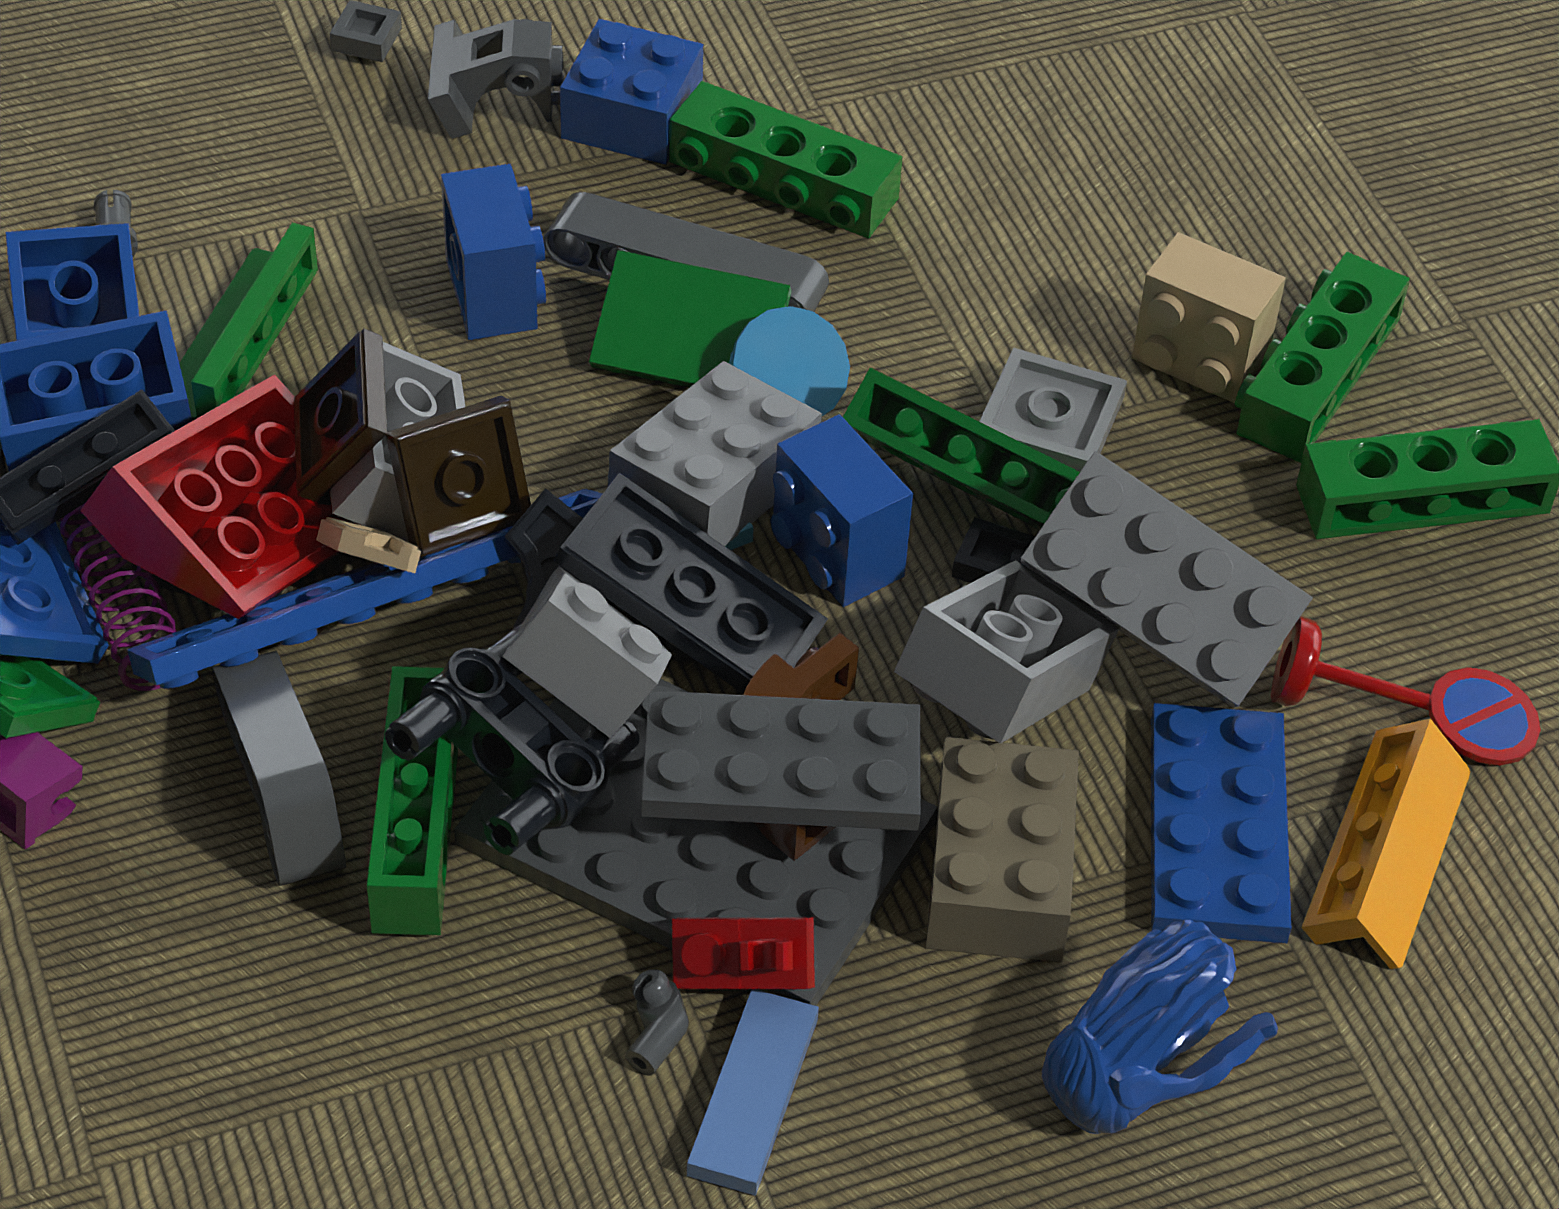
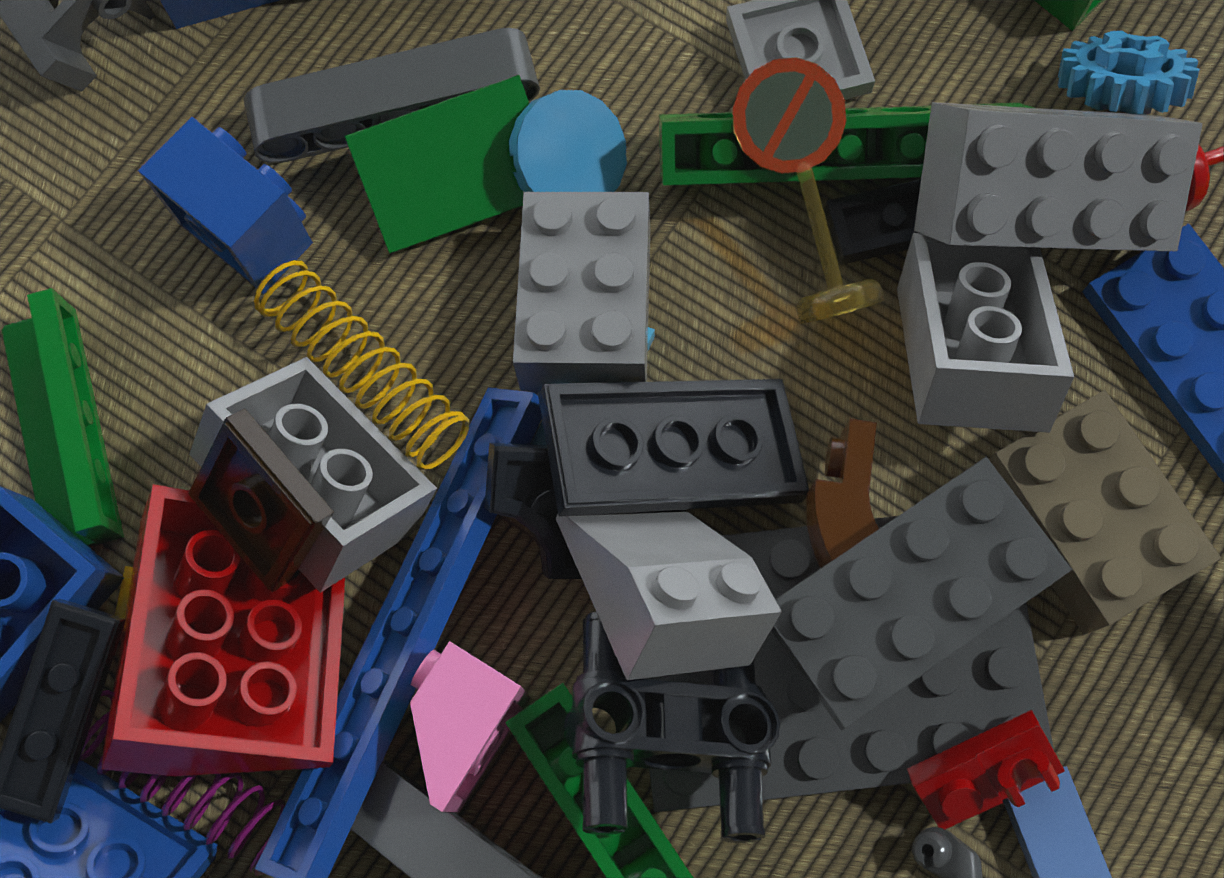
camera: 30 degrees left, 25 degrees up
(349, 657) = (460, 721): none -> bright pink slope
(368, 544) = (379, 603): tan tile -> none
(459, 475) = (410, 486): dark brown tile -> none
(536, 461) = (356, 360): none -> yellow piece
(841, 510) = (731, 275): blue brick -> none
(973, 422) = (788, 122): none -> clear yellow piece
(1318, 567) = (1128, 73): none -> dark azure gear

